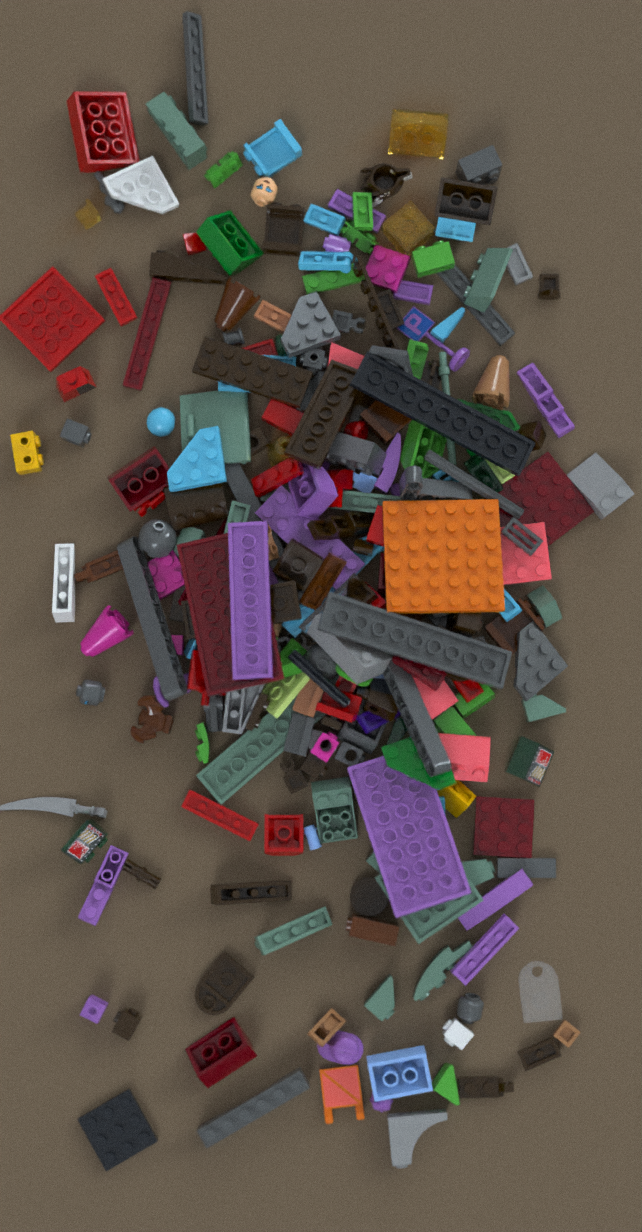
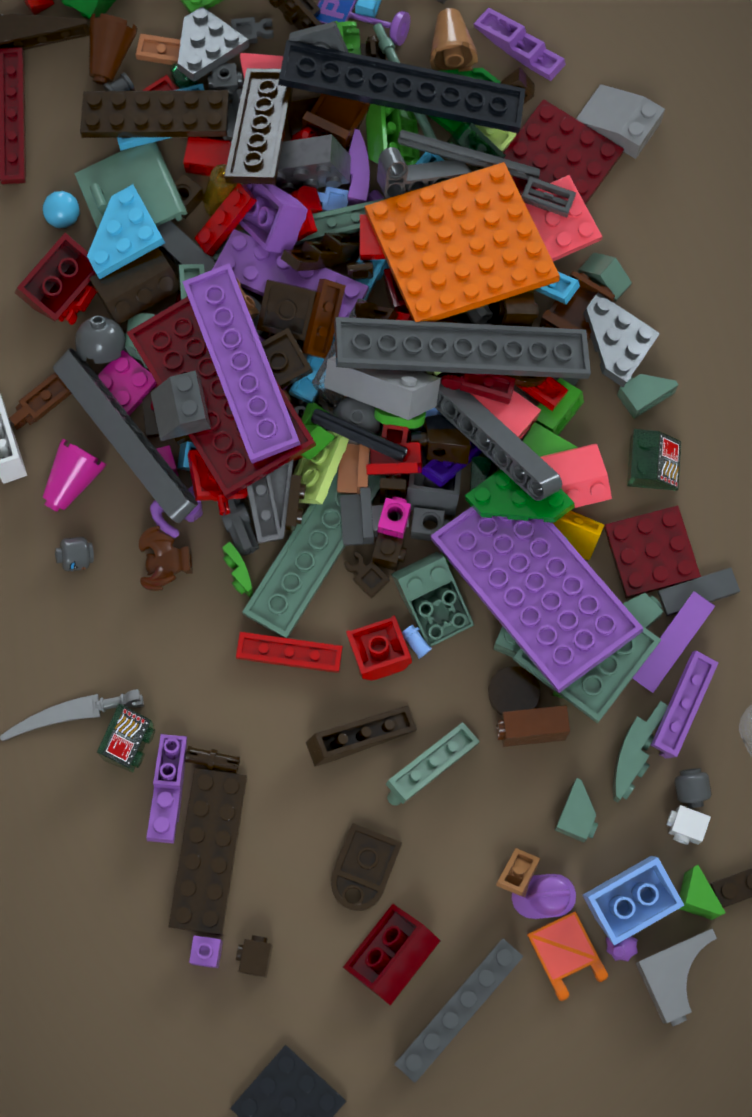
camera: 20 degrees left, 10 degrees down
(118, 937) = (208, 851): none -> dark brown plate
(196, 619) = (180, 406): none -> dark grey slope

